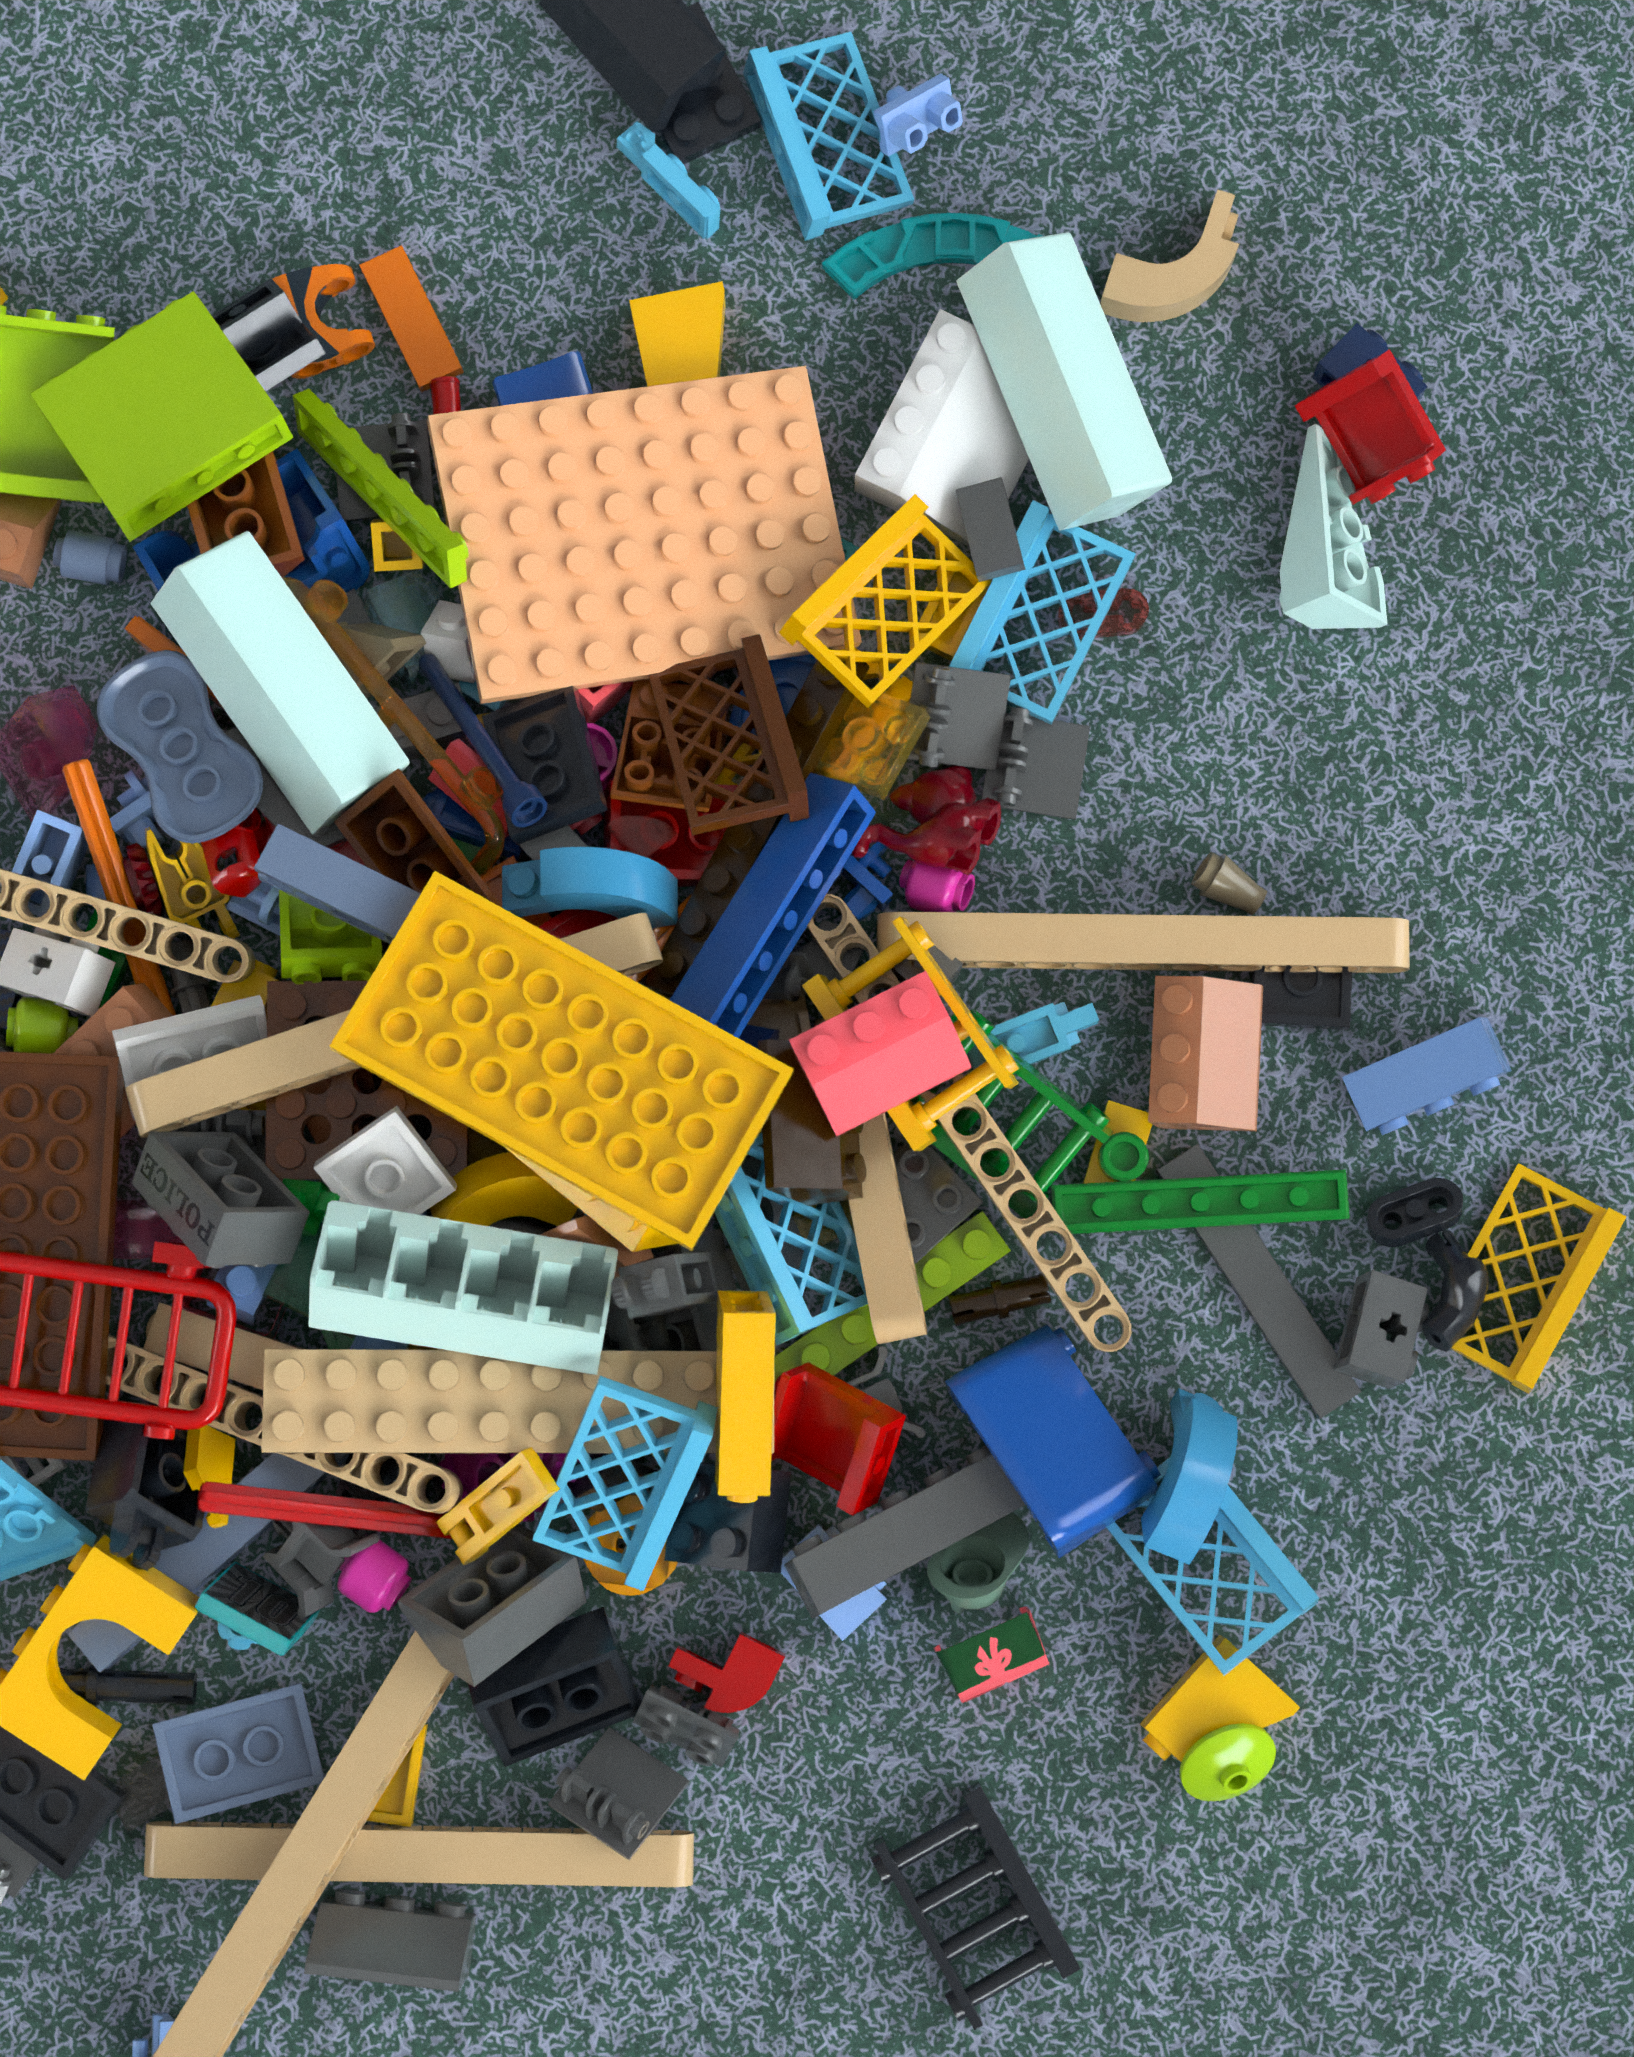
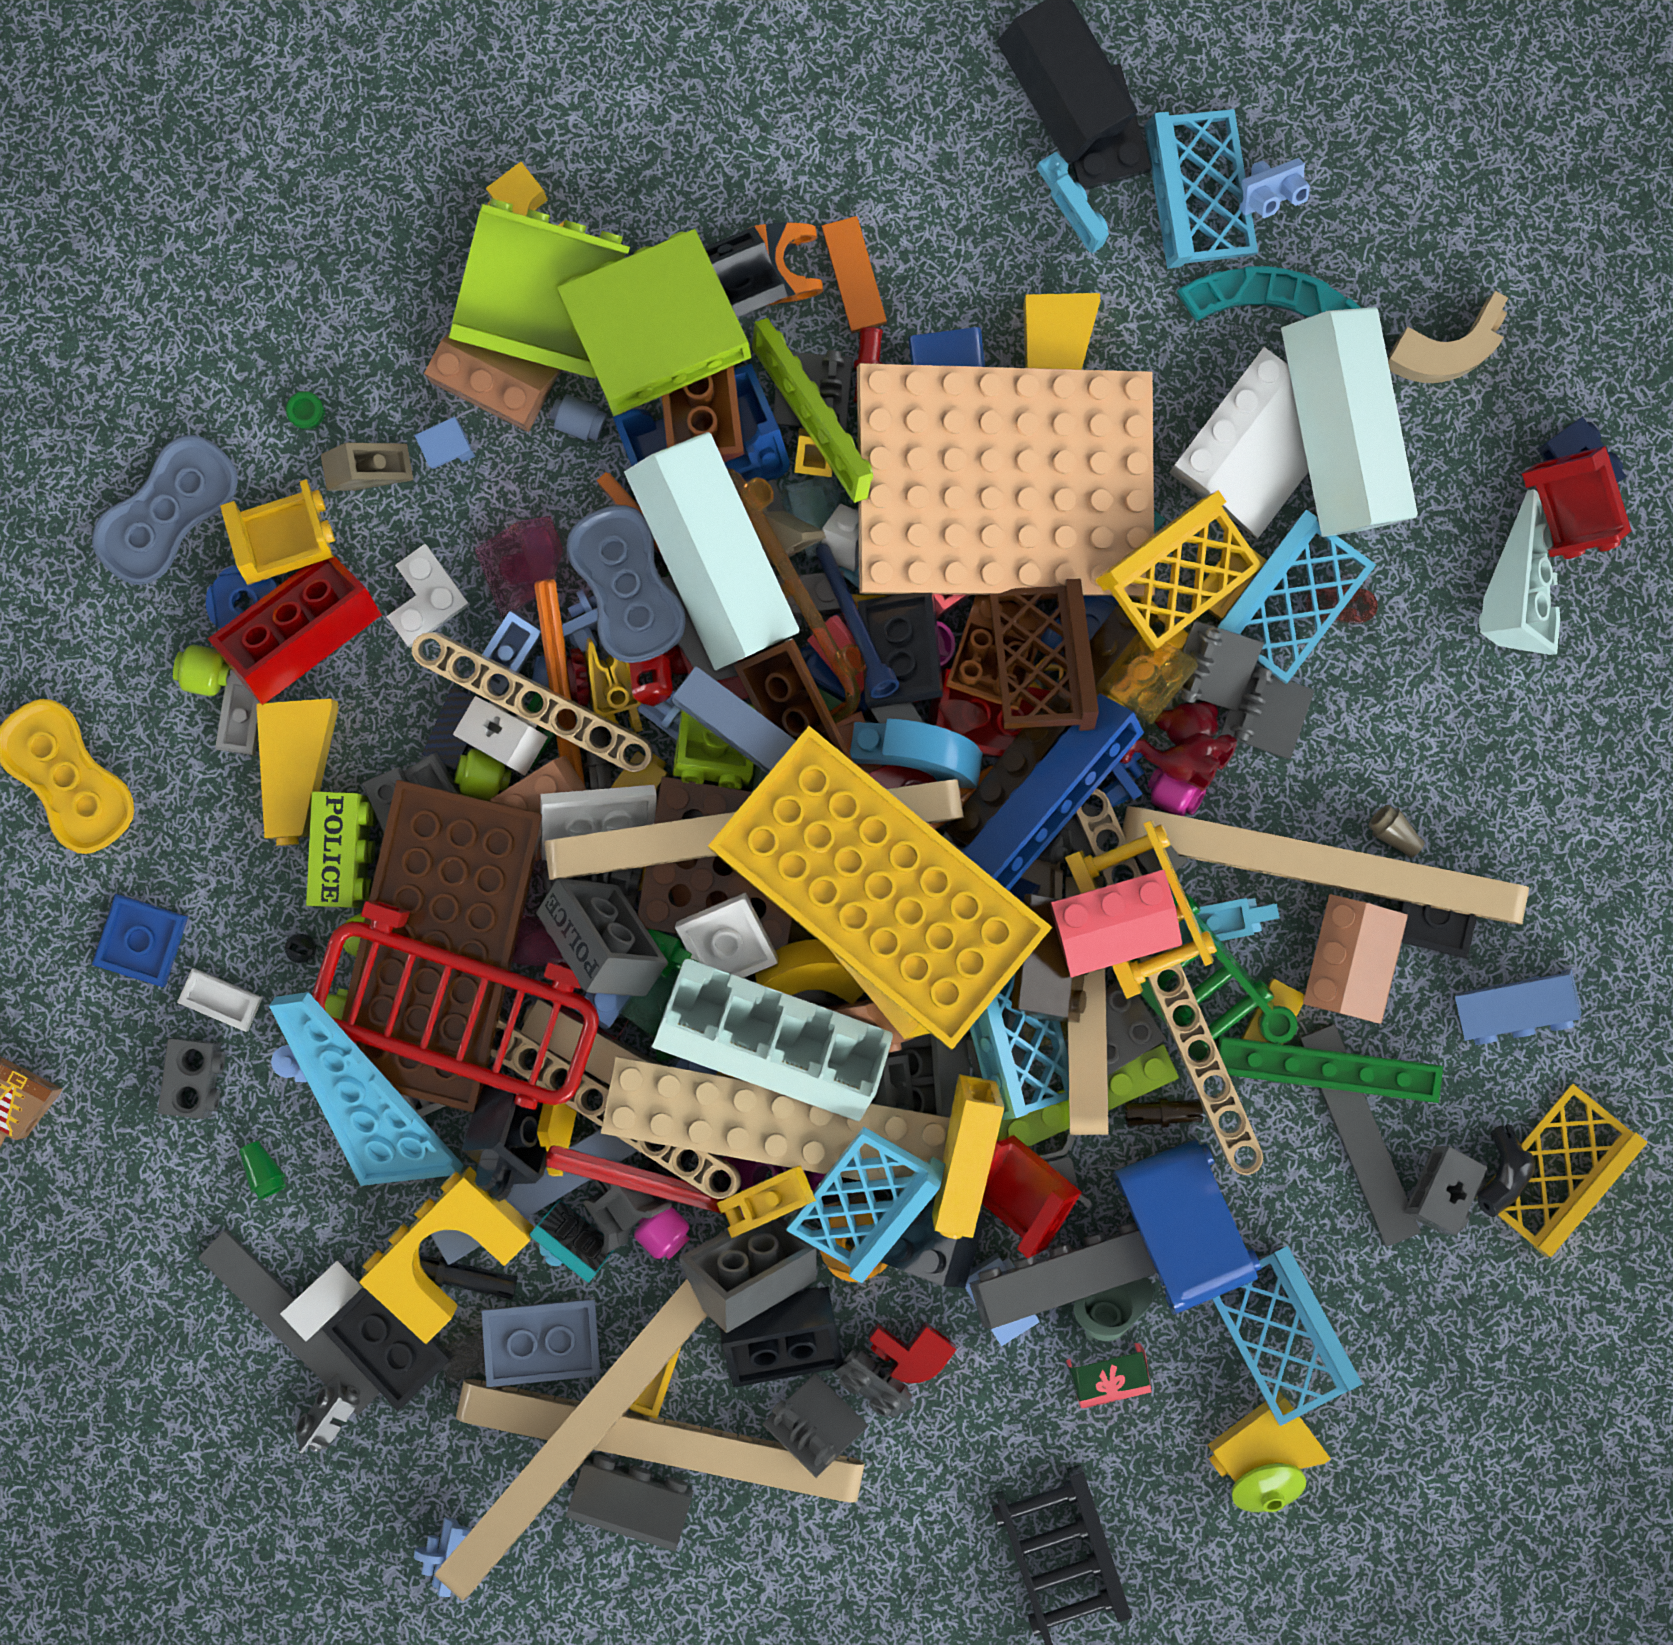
camera: 10 degrees right, 5 degrees up
(665, 1284) = (922, 1065): dark grey hinge -> none
(990, 529) = (1269, 526): dark grey tile -> none
(1194, 1479) = (1288, 1278): dark azure arch -> none
(1412, 1212) = (1485, 1104): black plate -> none

